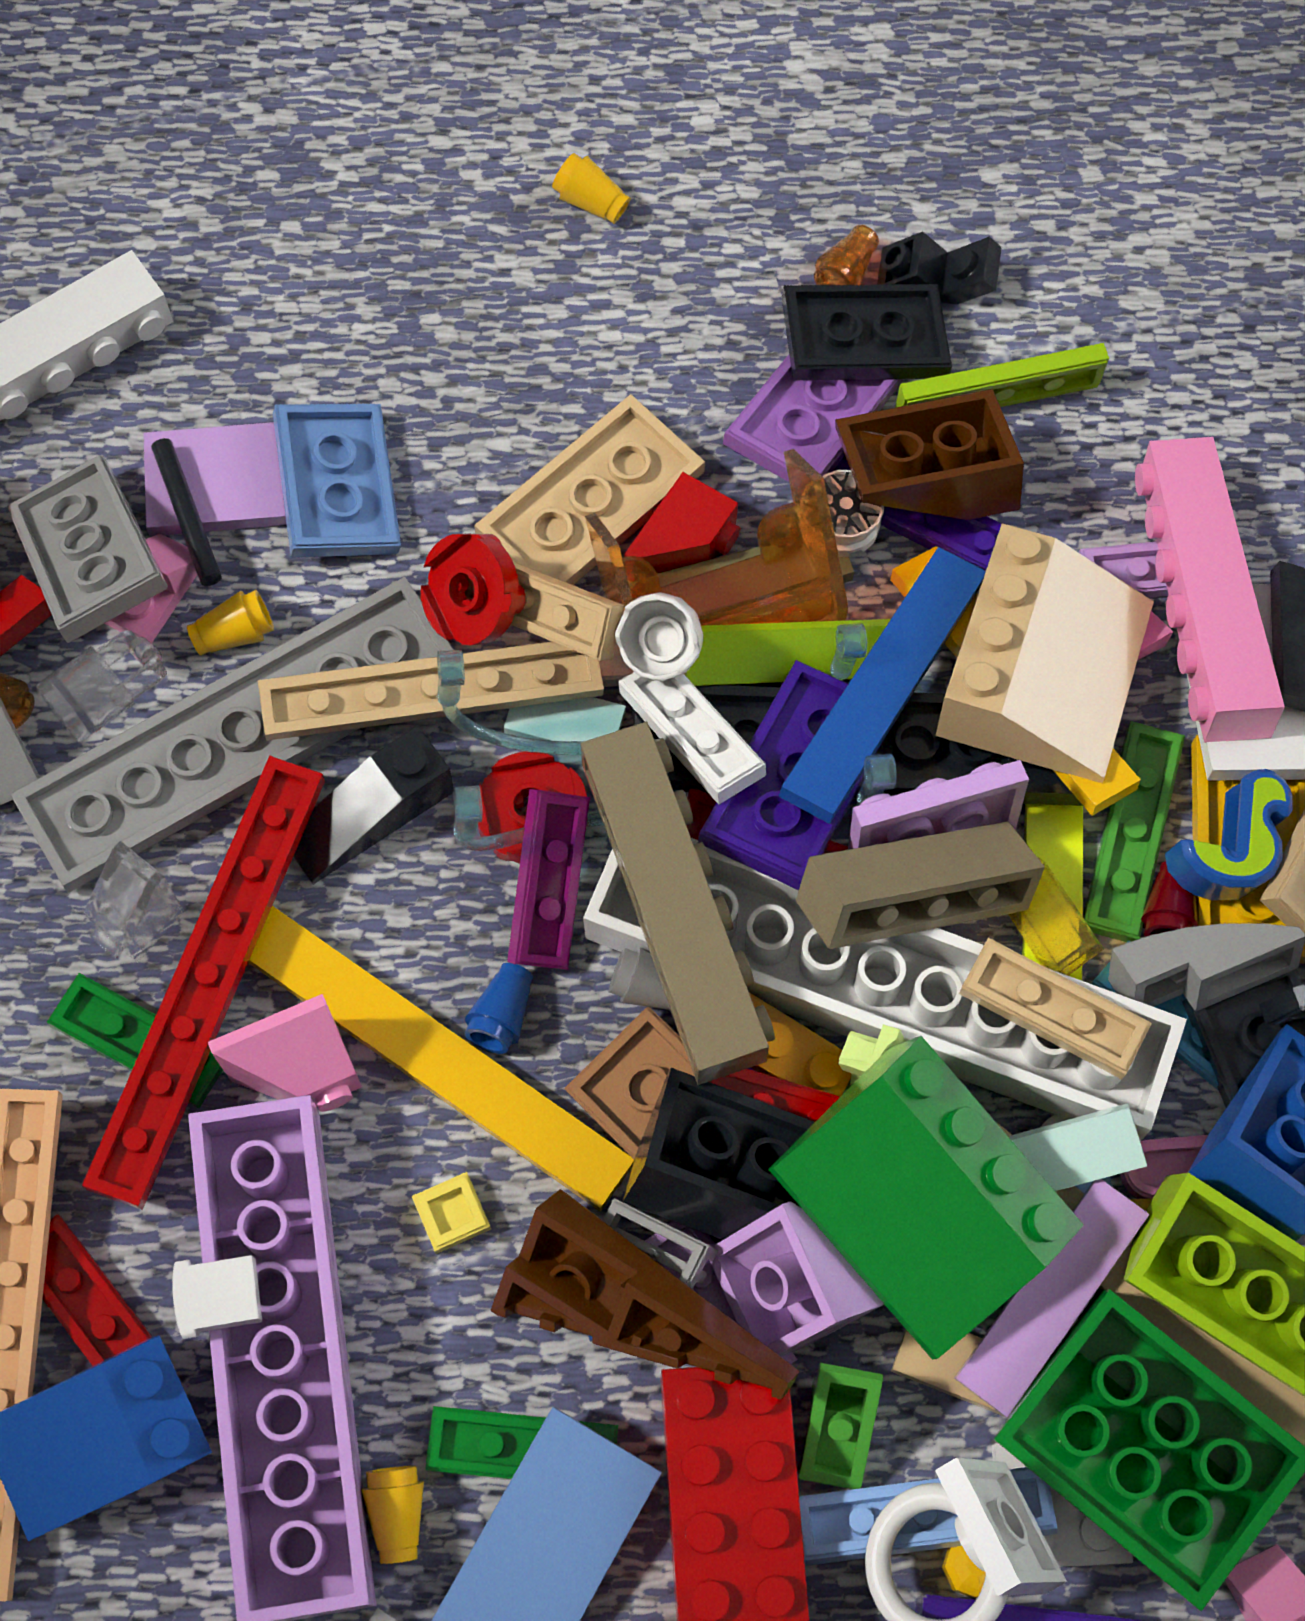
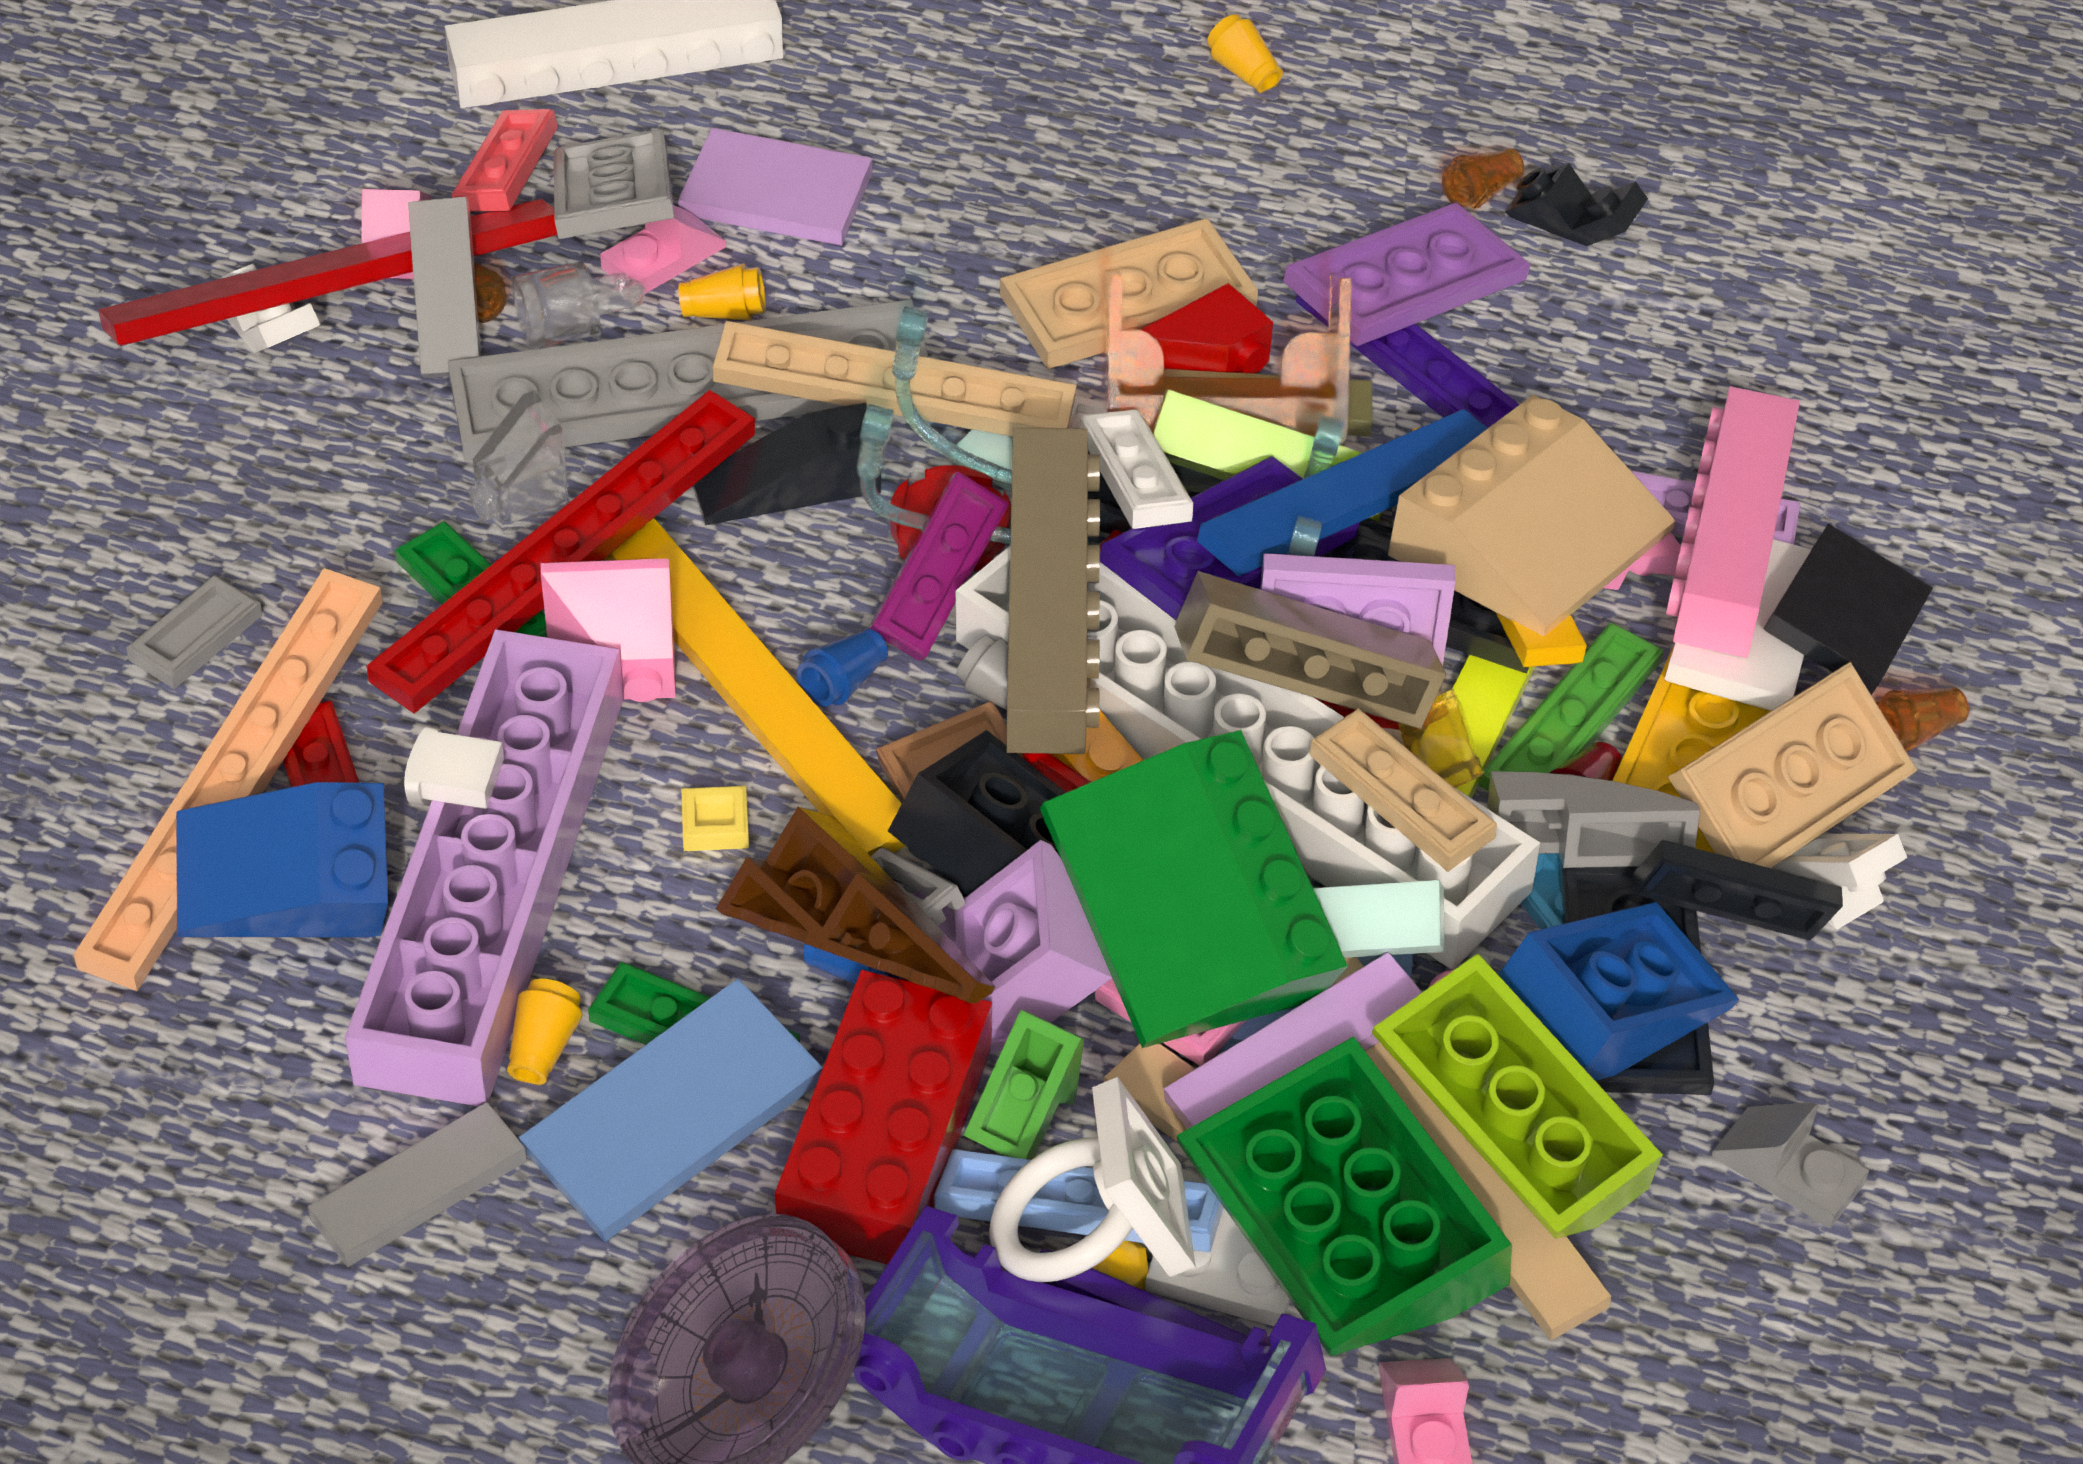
camera: 20 degrees right, 20 degrees down
(186, 512) = (722, 194): black bar -> none
(336, 480) = (881, 211): medium blue tile -> none
(495, 583) = (971, 310): red plate -> none
(566, 614) = (1023, 335): tan tile -> none
(659, 636) = (1134, 373): white hair -> none
(853, 522) = (1384, 362): white wheel -> none
(865, 332) = (1473, 230): black tile -> none
(936, 457) = (1494, 336): reddish brown slope -> none
(1016, 380) = (1598, 311): lime tile -> none
(1249, 842) = (1650, 750): blue animal -> none

